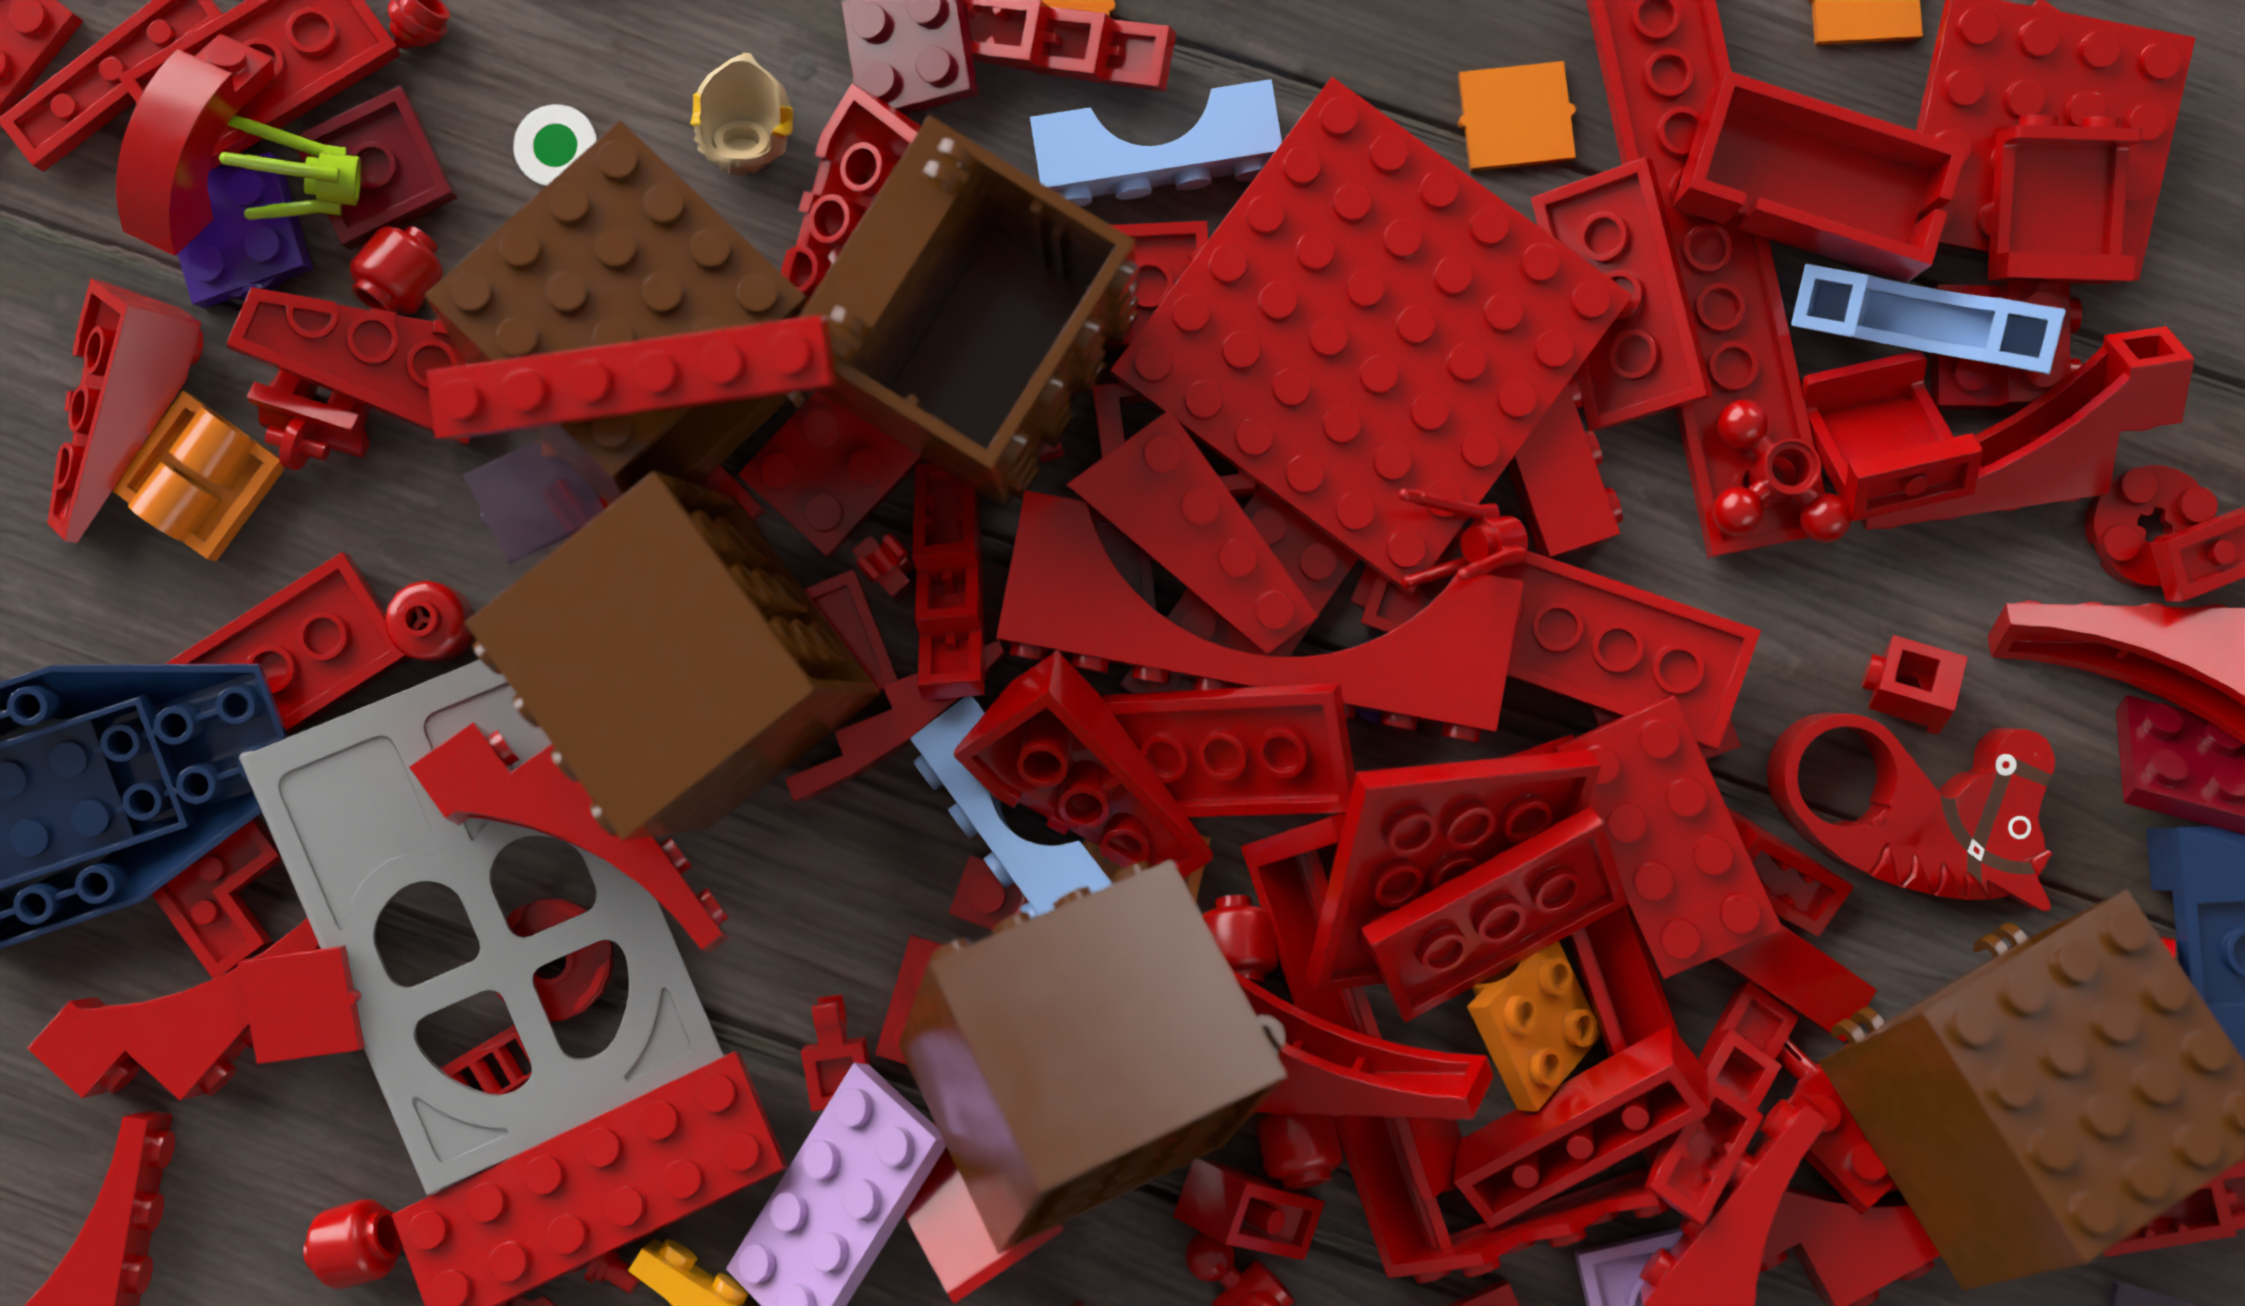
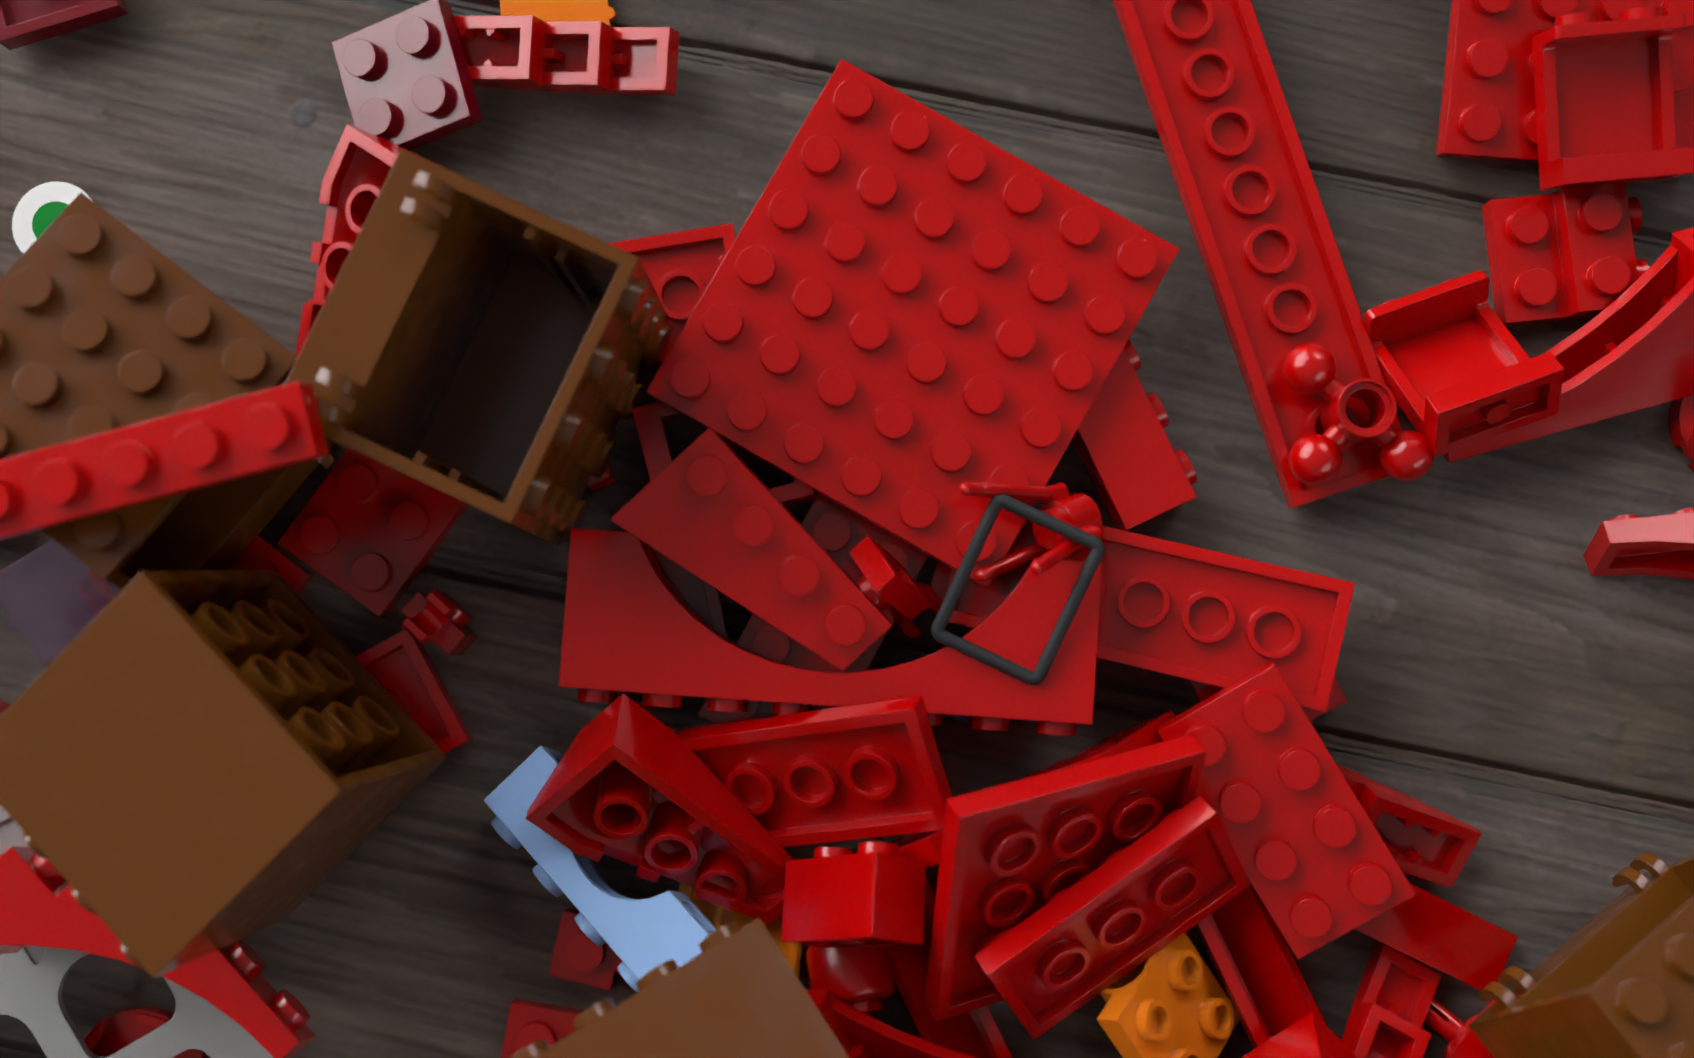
camera: 10 degrees left, 0 degrees up
(741, 116) = (238, 172): tan hair -> none
(882, 735) = (484, 764): red slope -> none
(948, 585) = (506, 636): red slope -> none
(1086, 160) = (597, 175): light blue arch -> none
(1254, 867) = (854, 898): none -> red brick
(1319, 580) = (889, 583): none -> red plate
(1487, 621) = (1068, 613): none -> black piece
(1516, 116) = (1039, 78): orange piece -> none
(1652, 348) = (1206, 302): red plate -> none
(1820, 177) = (1358, 103): red piece -> none
(1915, 682) = (1533, 602): red brick -> none
(1928, 319) = (1490, 237): light blue arch -> none
(1957, 842) = (1581, 773): red animal -> none

